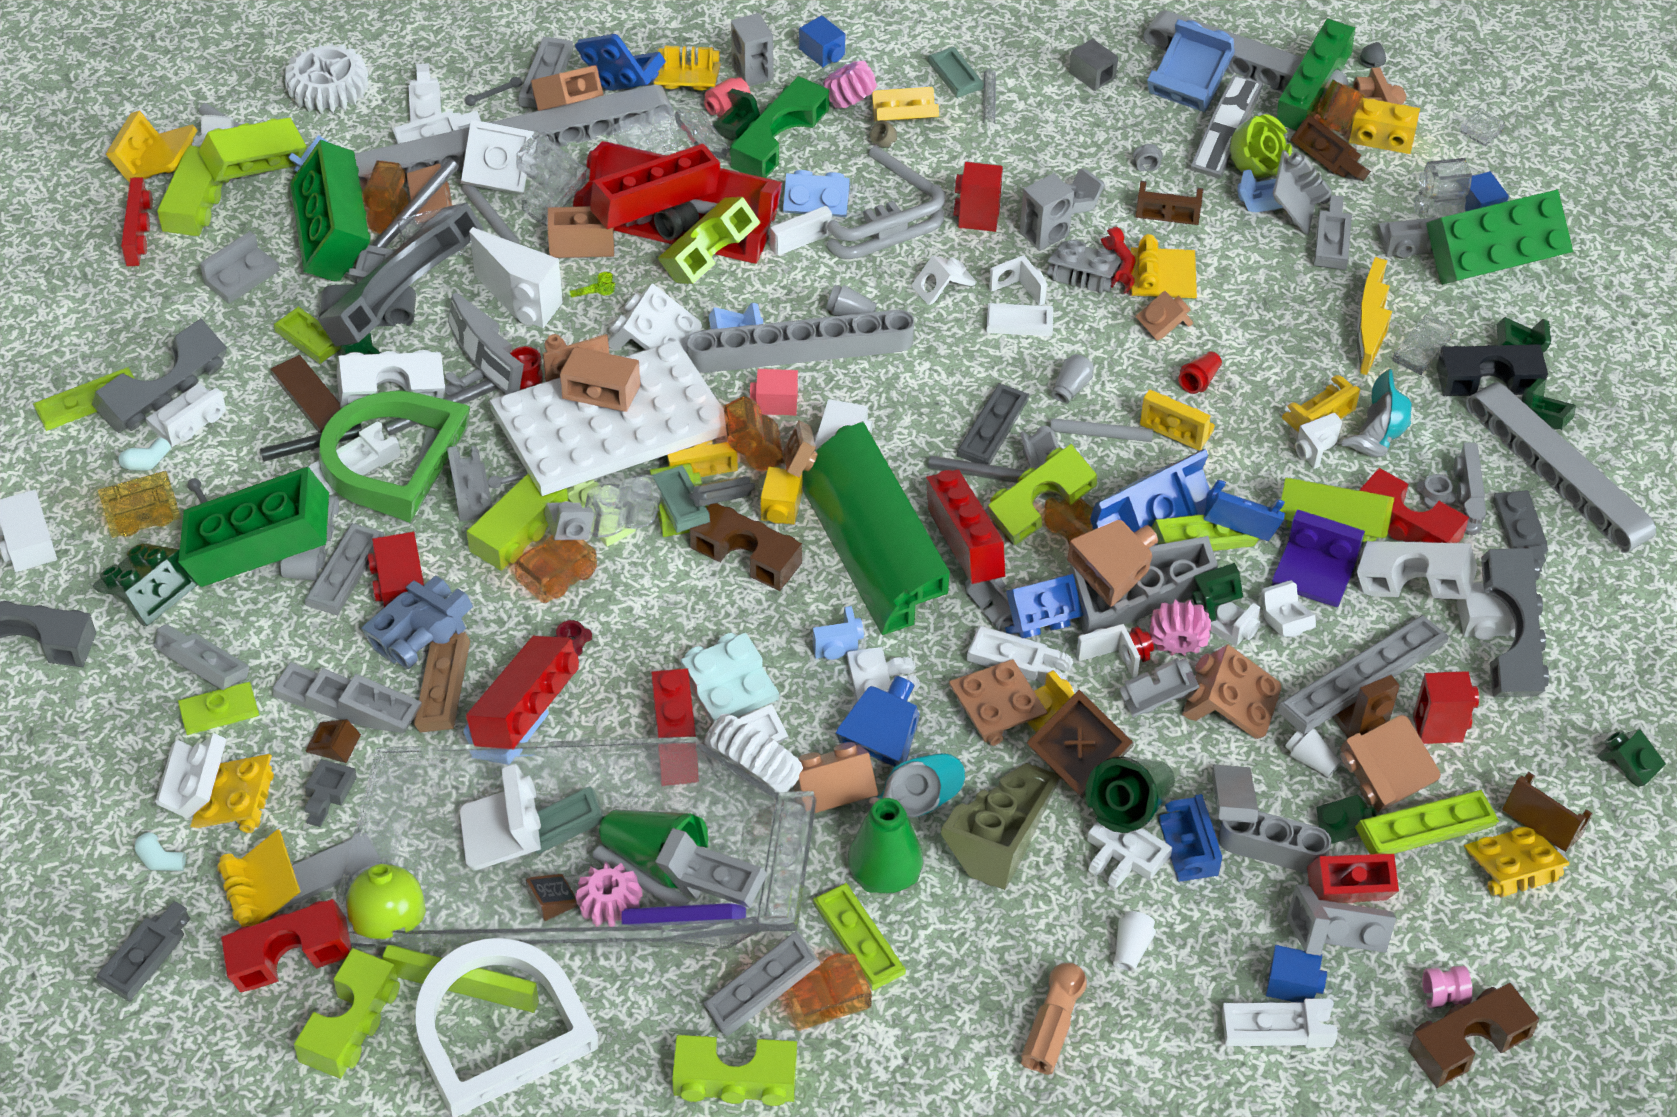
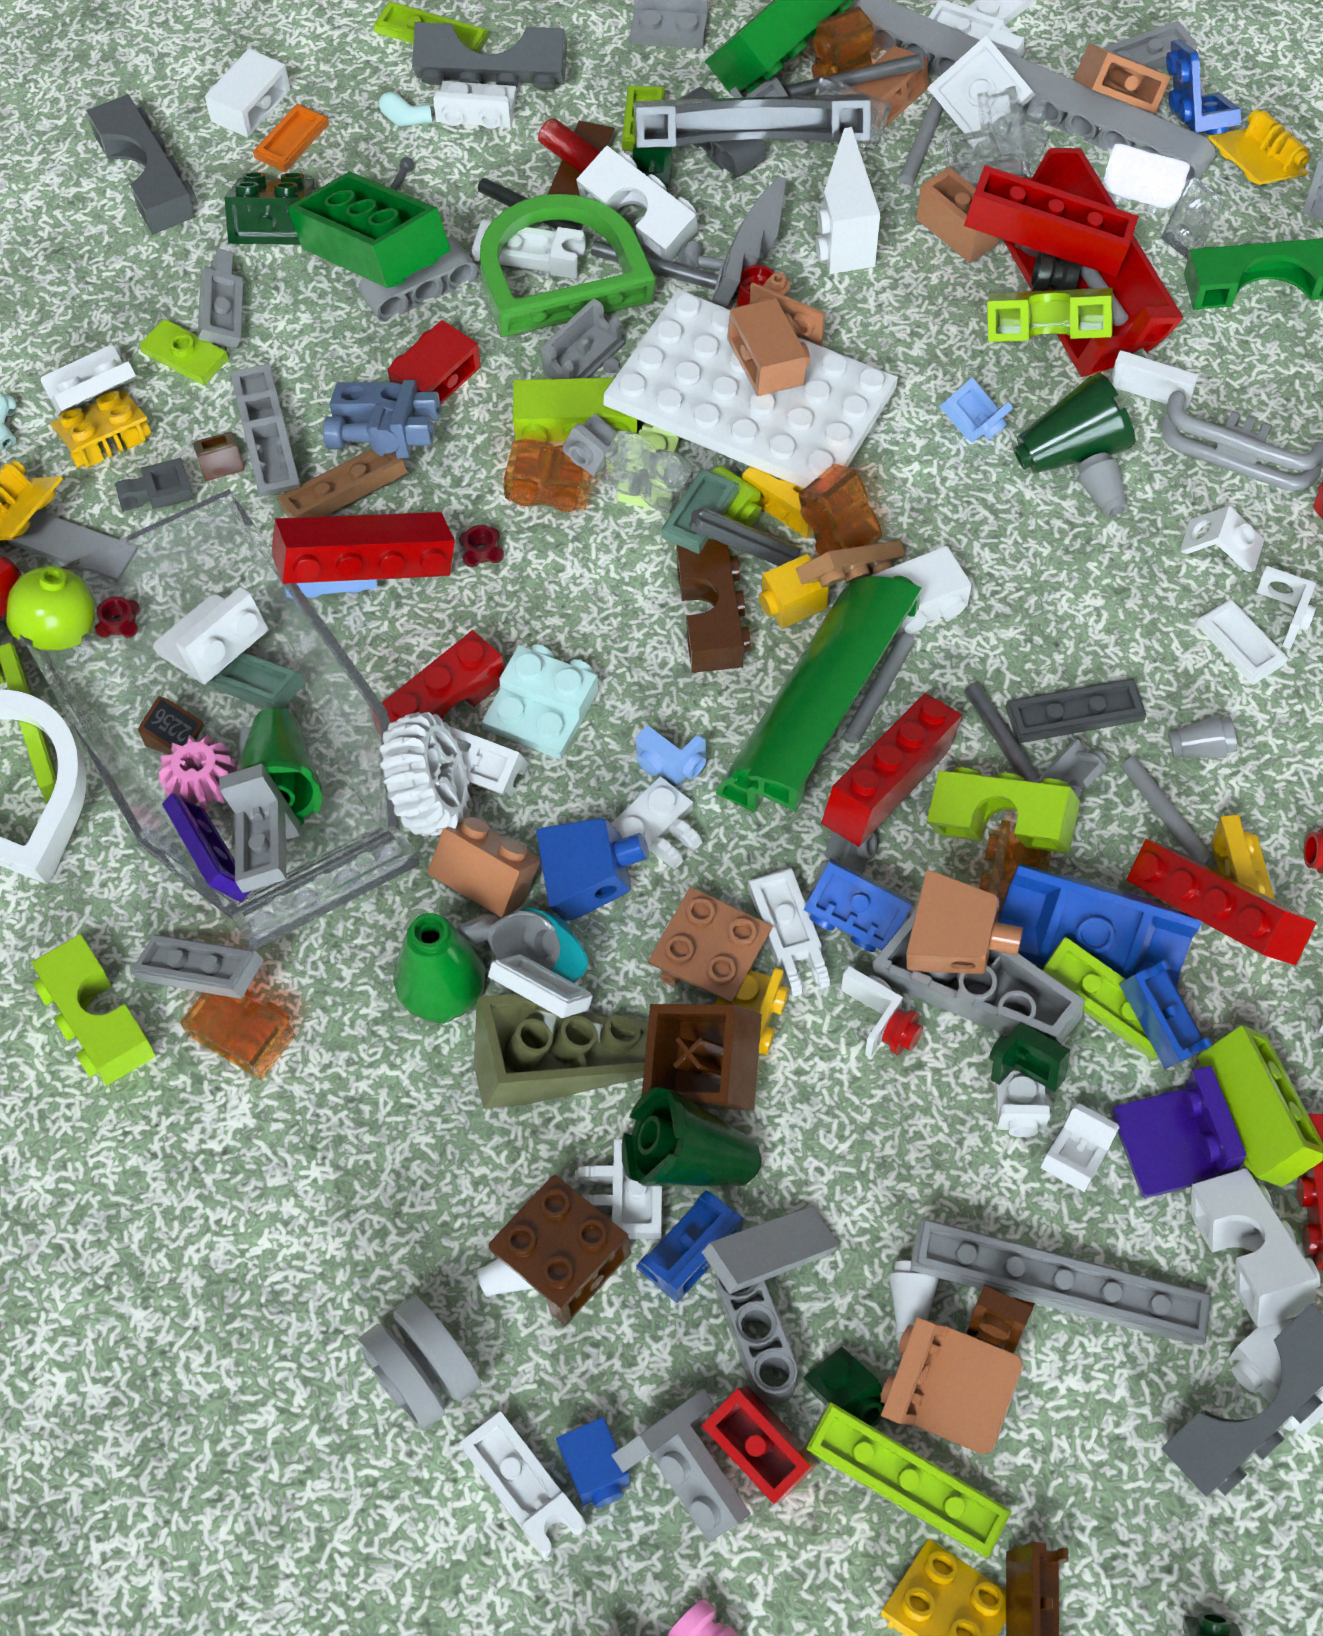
camera: 55 degrees right, 10 degrees up
(91, 534) = (290, 137): none -> orange tile
(139, 504) = (343, 142): clear yellow brick -> none
(304, 381) = (564, 153): none -> red piece
(343, 570) = (402, 330): light grey tile -> none
(426, 866) = (113, 608): none -> dark red plate
(471, 100) = (1047, 30): dark grey hinge -> none
(603, 286) = (918, 278): clear neon green hand -> none
(653, 321) = (912, 349): white bracket -> none
(717, 98) = (1263, 205): coral brick -> none
(739, 116) = (1247, 229): dark green bracket -> none
(776, 391) = (924, 500): coral brick -> none
(801, 341) = (1012, 478): light grey beam -> none
(804, 279) = (1077, 428): none -> dark green cone
(810, 192) = (1218, 362): light blue bracket -> none
(859, 935) = (332, 1015): lime tile -> none
(955, 796) = (540, 985): none -> white tile
(1053, 1018) = (362, 1255): nougat piece -> none
(1143, 899) = (562, 1247): none -> reddish brown bracket
(1163, 1019) = (424, 1358): none -> light grey wheel
(1174, 682) = (866, 1092): light grey hinge -> none
(1180, 627) = (952, 1055): bright pink gear -> none
(1200, 432) = (1221, 902): none -> red brick
(1235, 690) = (922, 1166): nougat bracket -> none
(1445, 707) = (1078, 1398): red brick -> none

